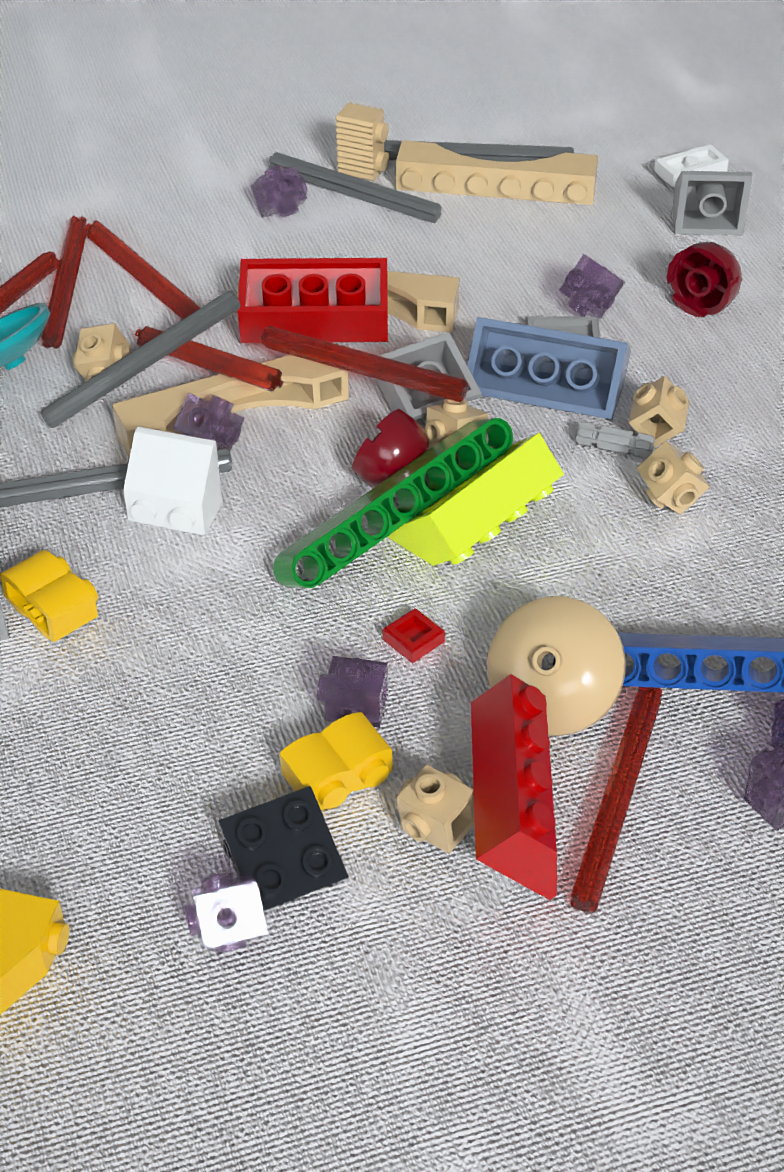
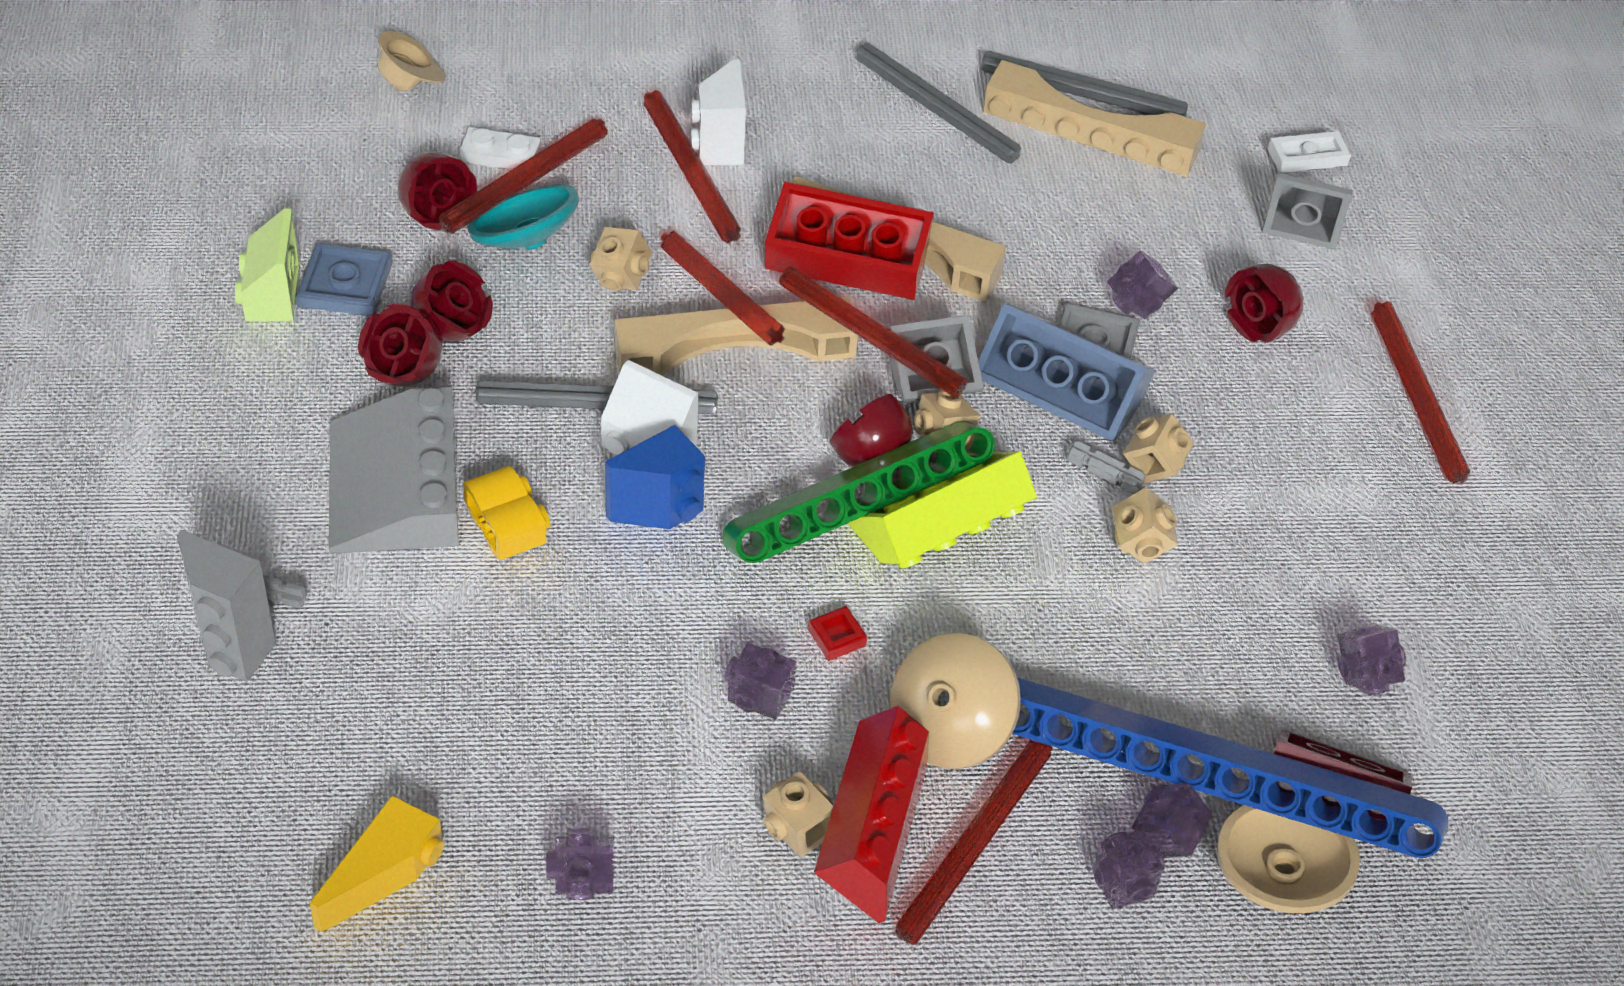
camera: 10 degrees right, 5 degrees up
(65, 282) = (607, 156): clear red axle -> none
(140, 359) = (656, 274): dark grey axle -> none
(164, 226) = (720, 117): none -> white slope
(195, 533) = (656, 482): none -> blue slope
(210, 420) = (705, 360): clear purple brick -> none
(279, 191) = (843, 97): clear purple brick -> none
(283, 847) = (651, 817): black hinge -> none
(338, 760) = (724, 745): yellow brick -> none
(361, 141) = (957, 52): tan brick -> none

